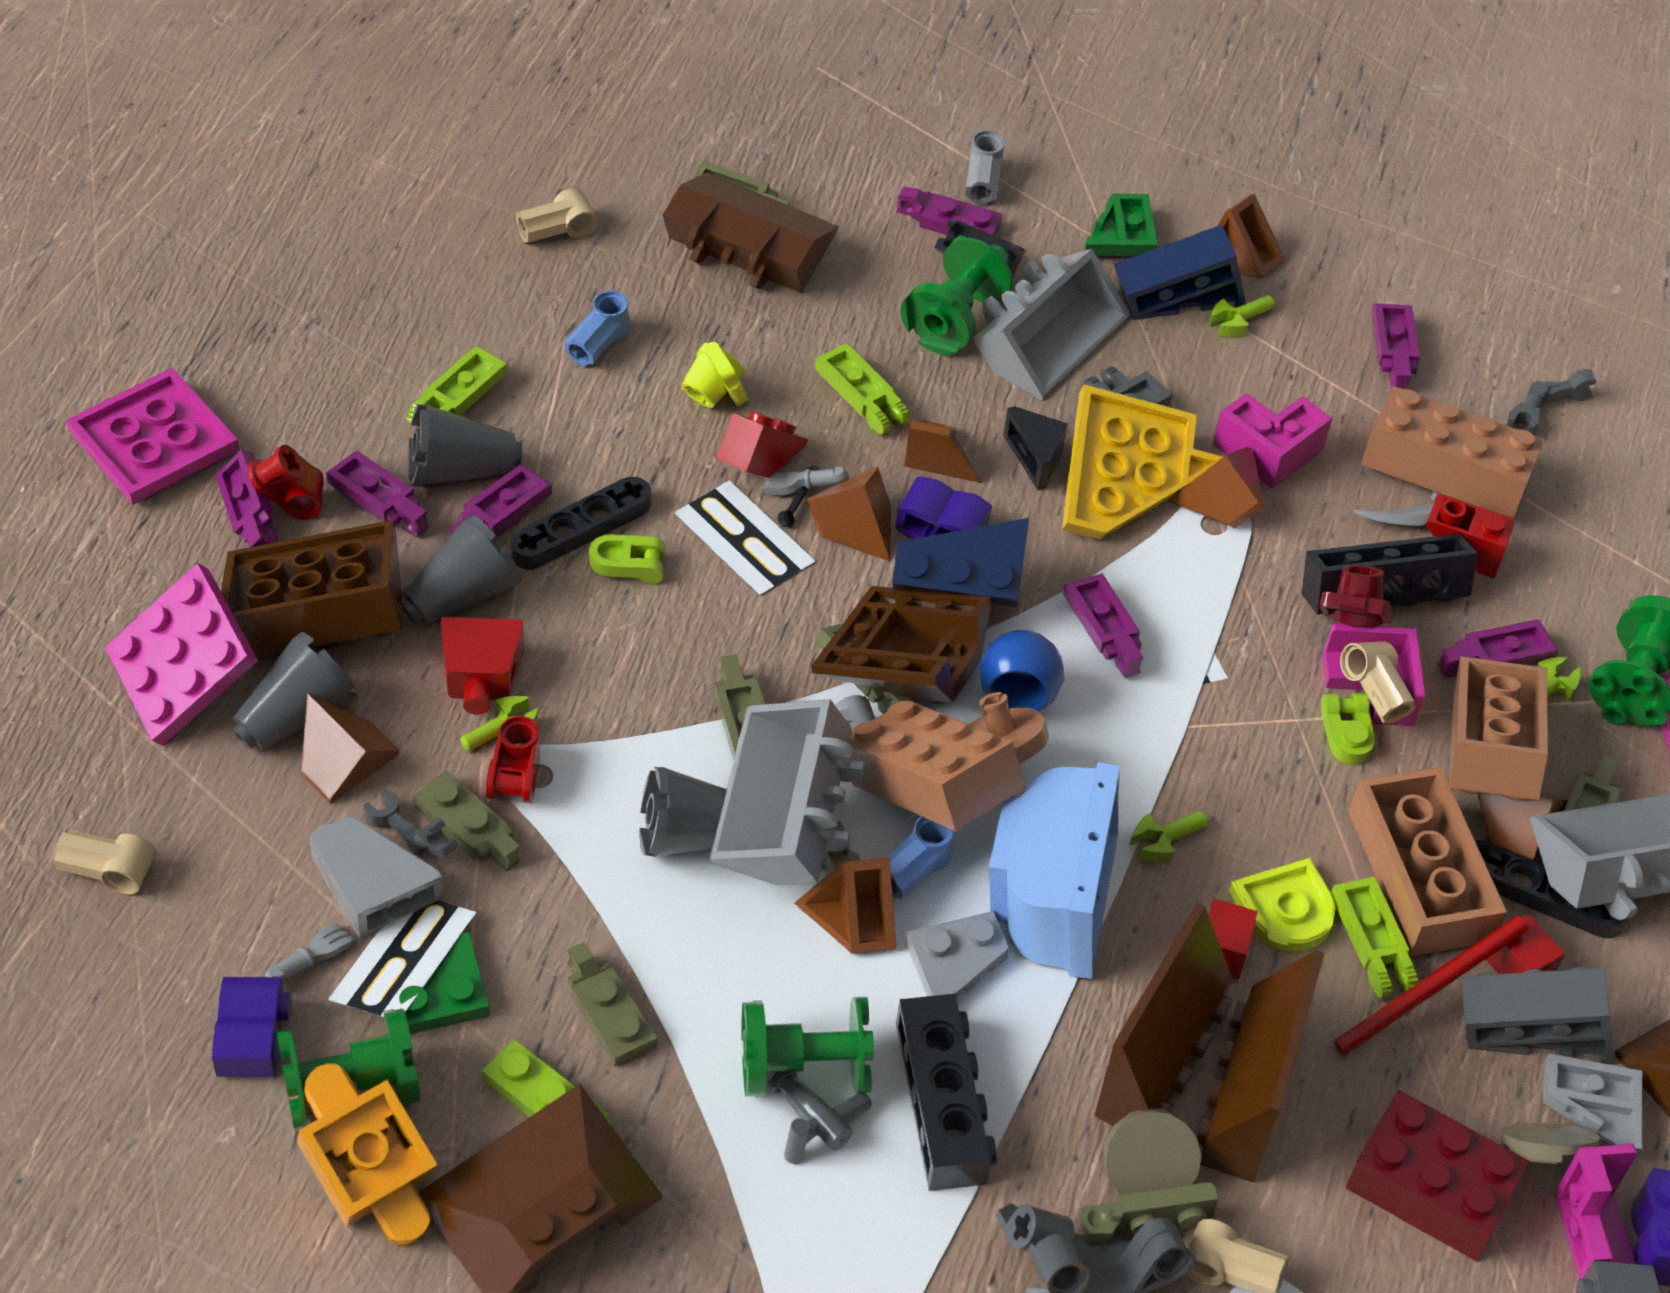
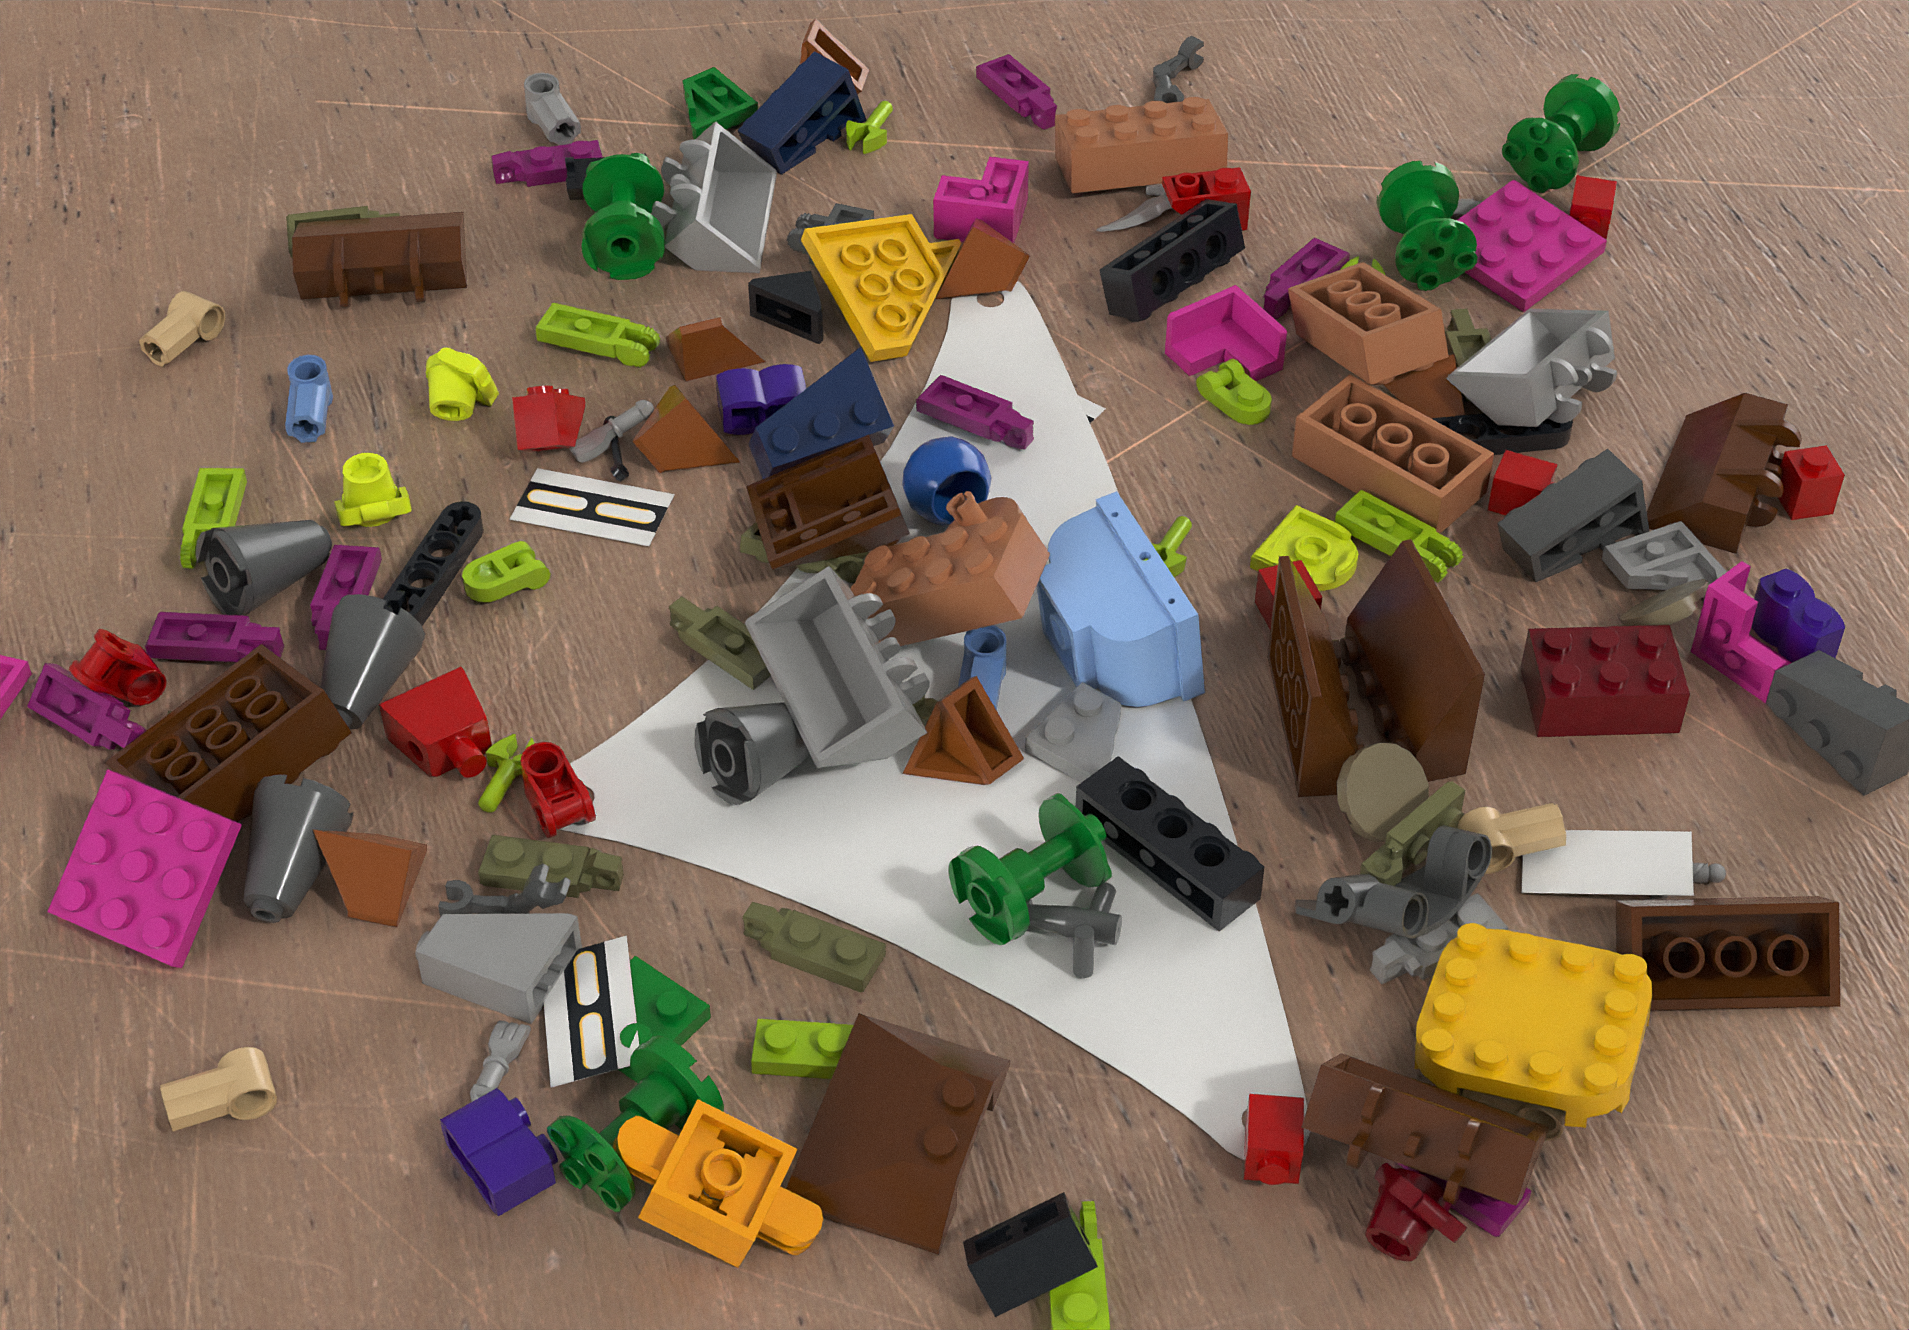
camera: 30 degrees left, 5 degrees down
(581, 435) = (370, 493): none -> neon yellow piece
(1358, 598) = (1175, 282): dark red piece -> none
(1376, 670) = (1240, 340): tan piece -> none
(1430, 985) = (1482, 532): red piece -> none

